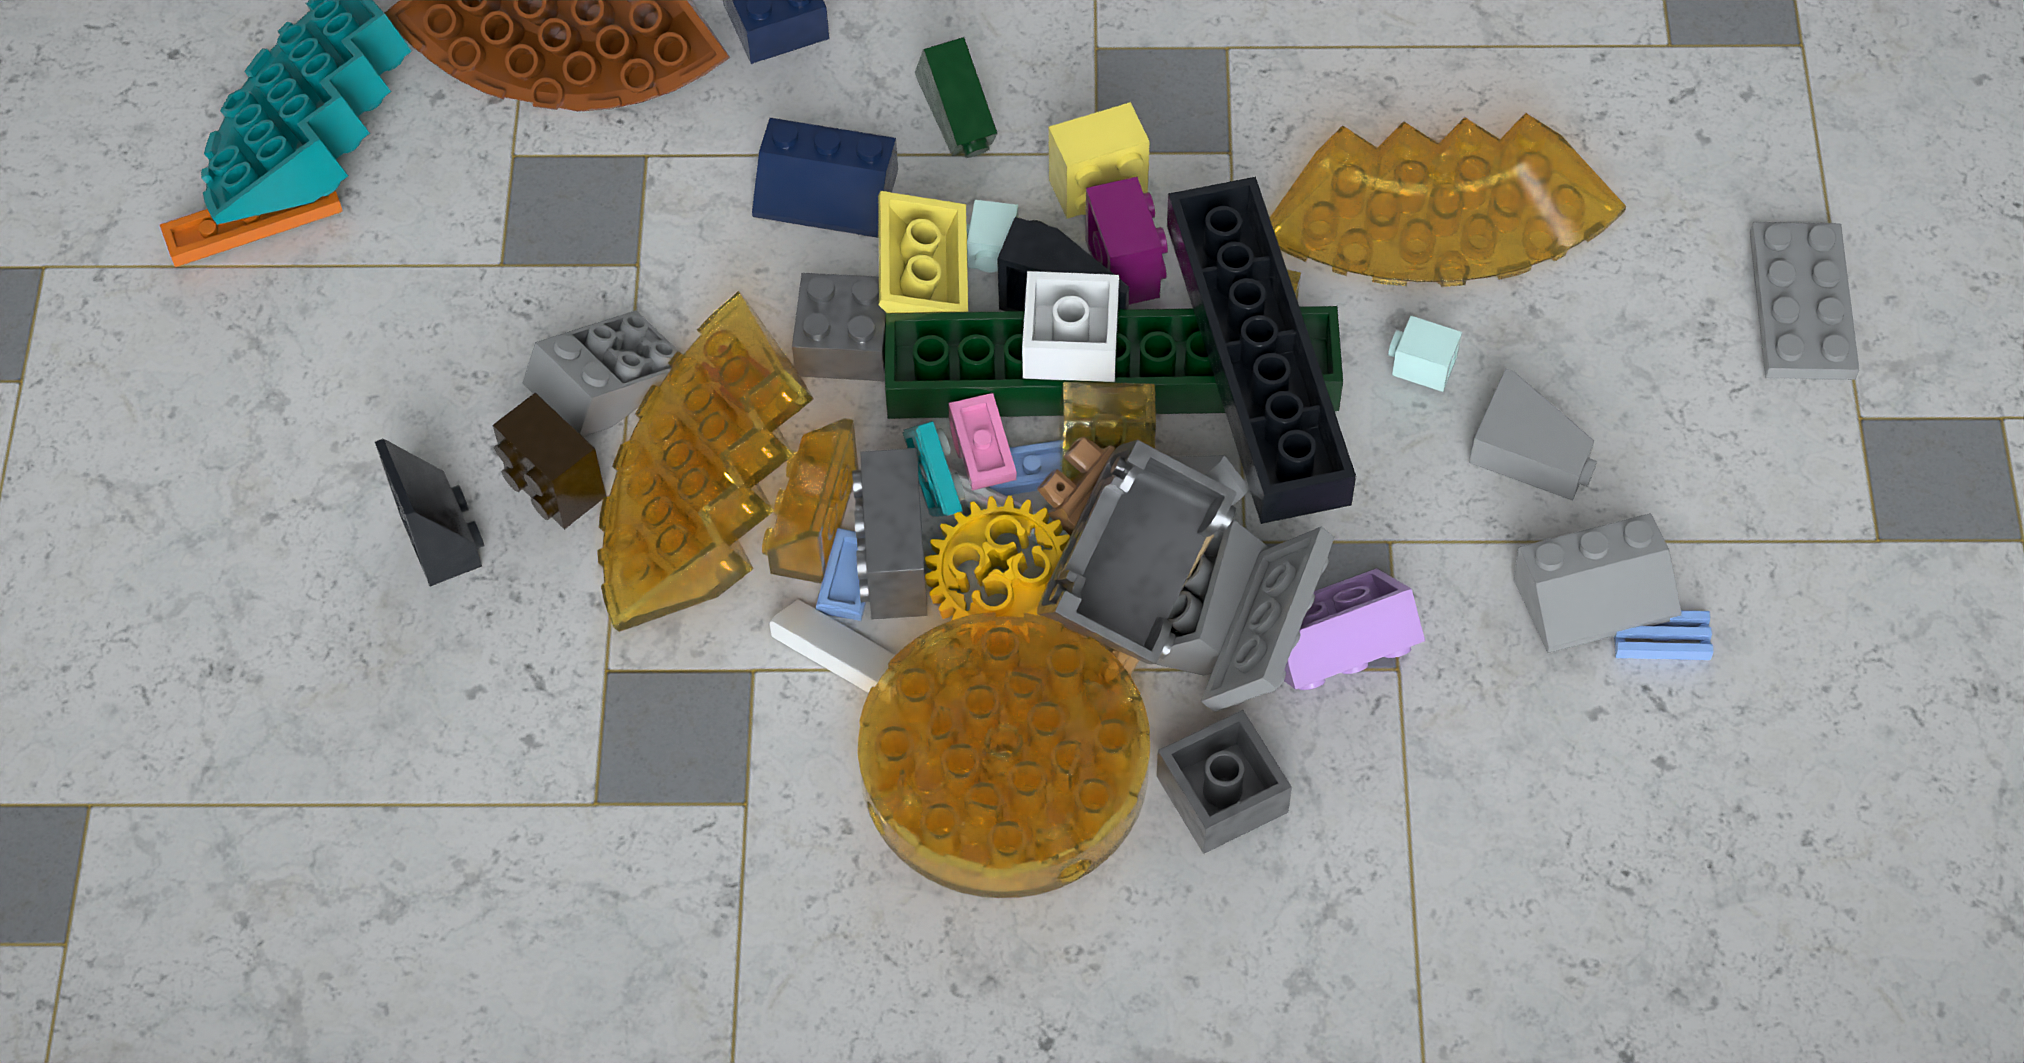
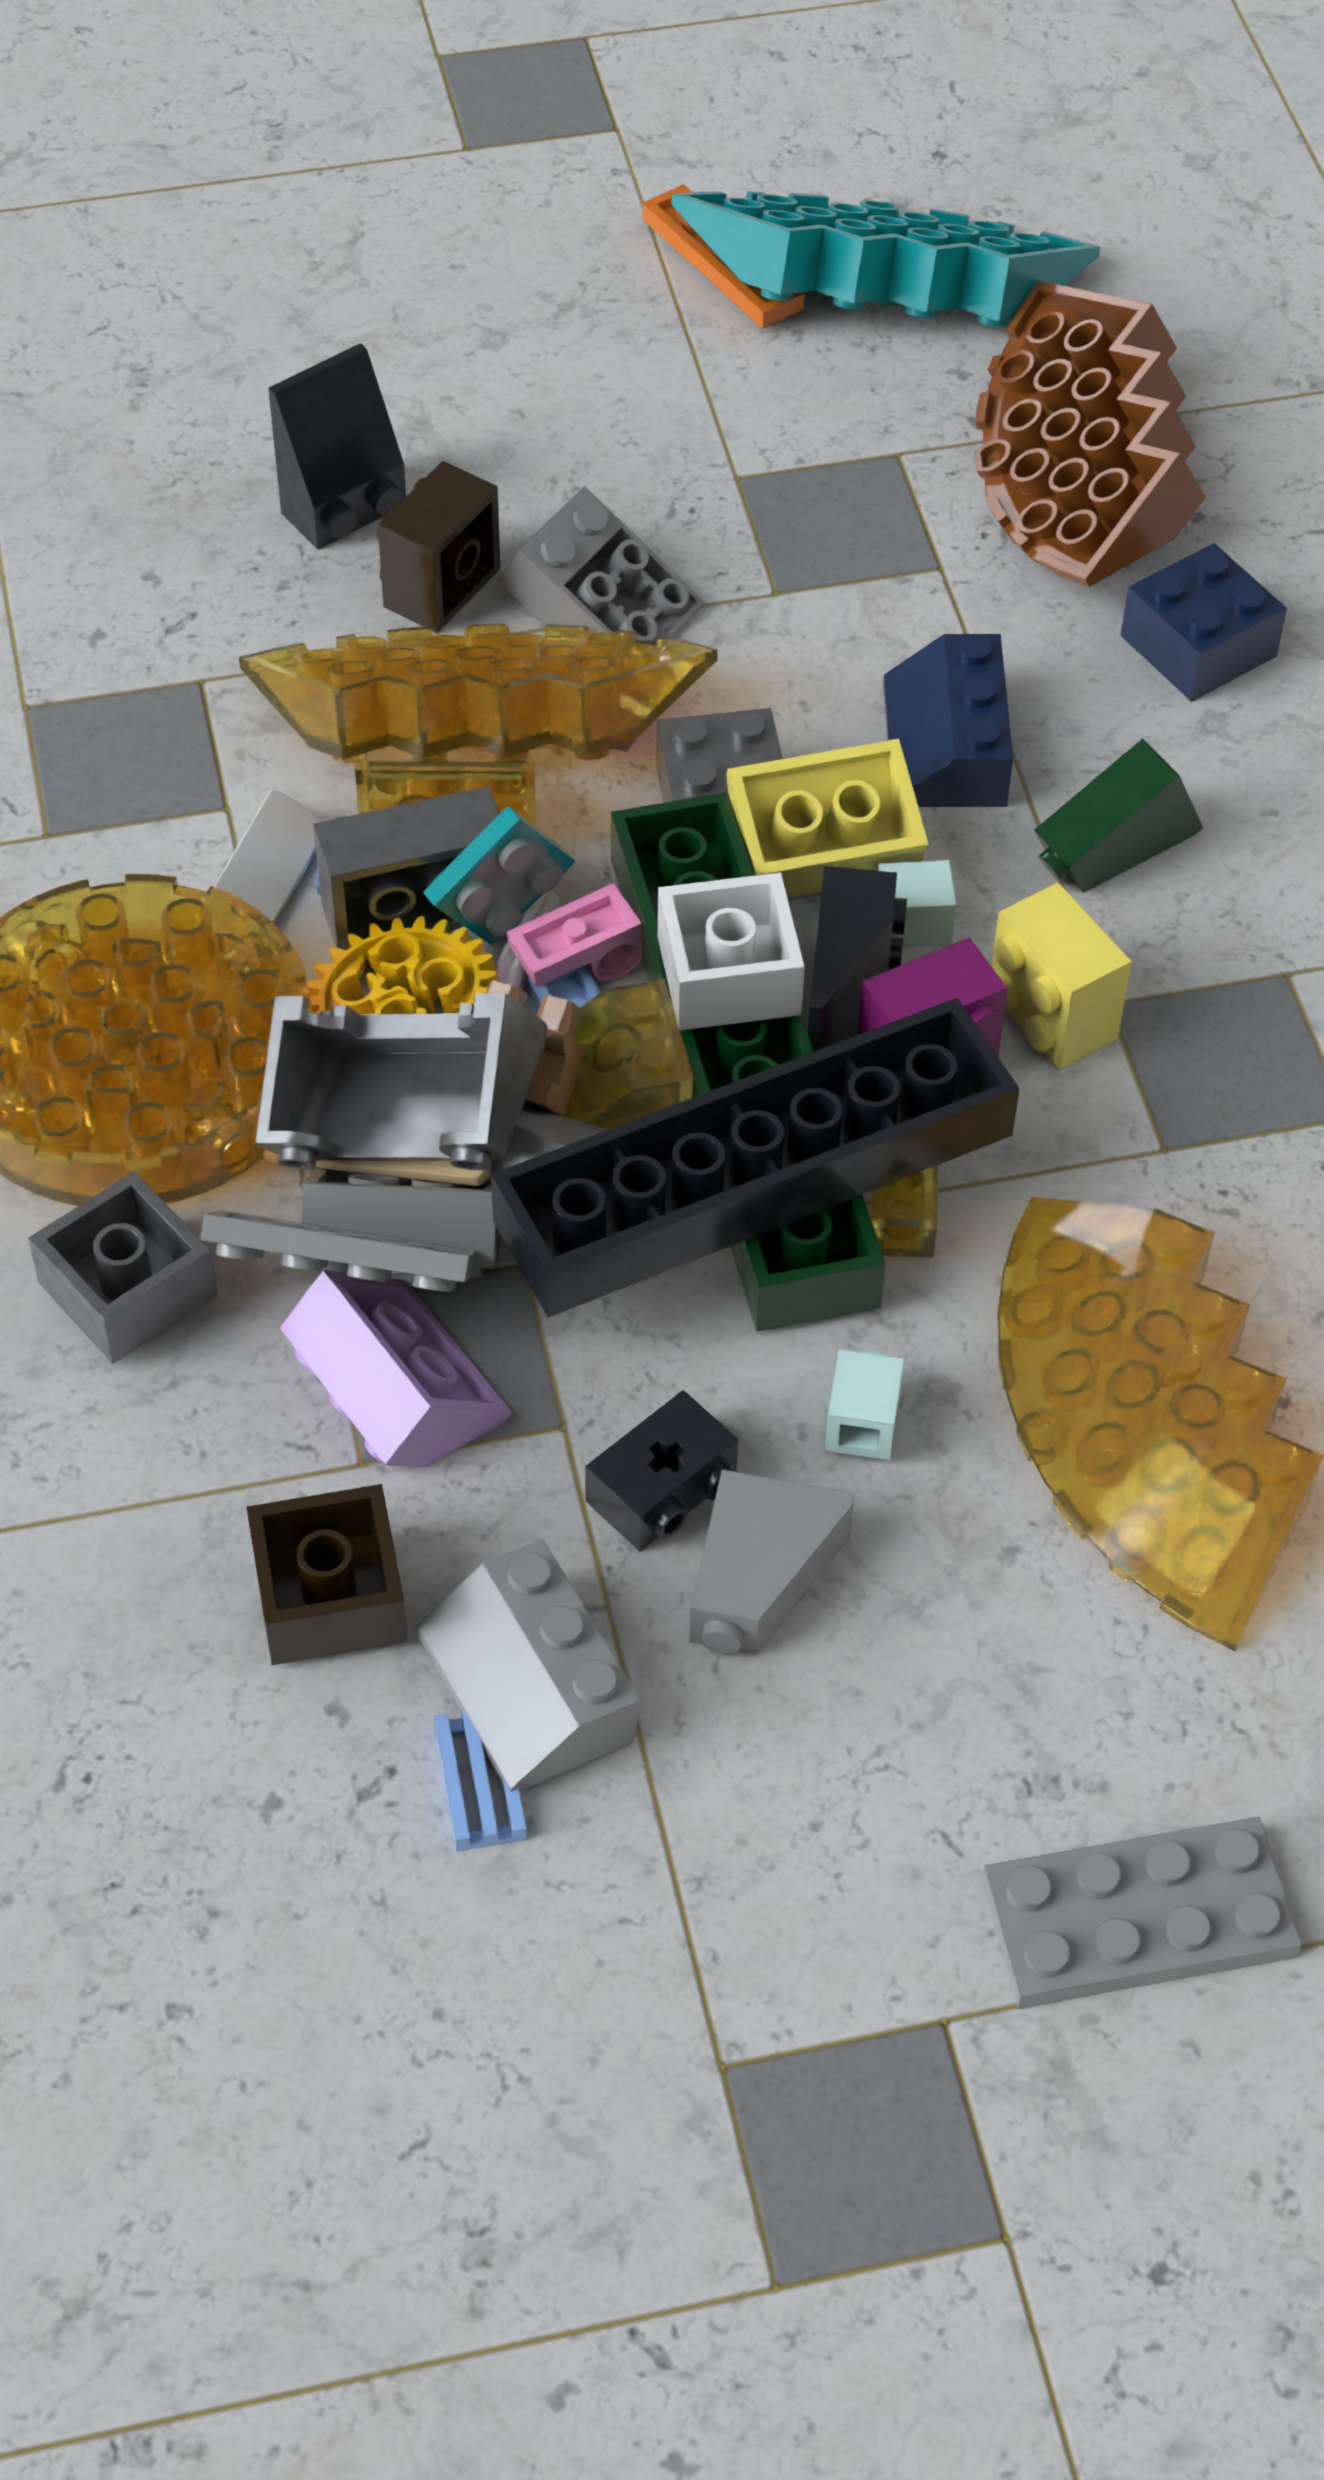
camera: 75 degrees right, 5 degrees down
(1453, 481) = (660, 1471): none -> black brick
(1512, 687) = (327, 1574): none -> dark brown brick

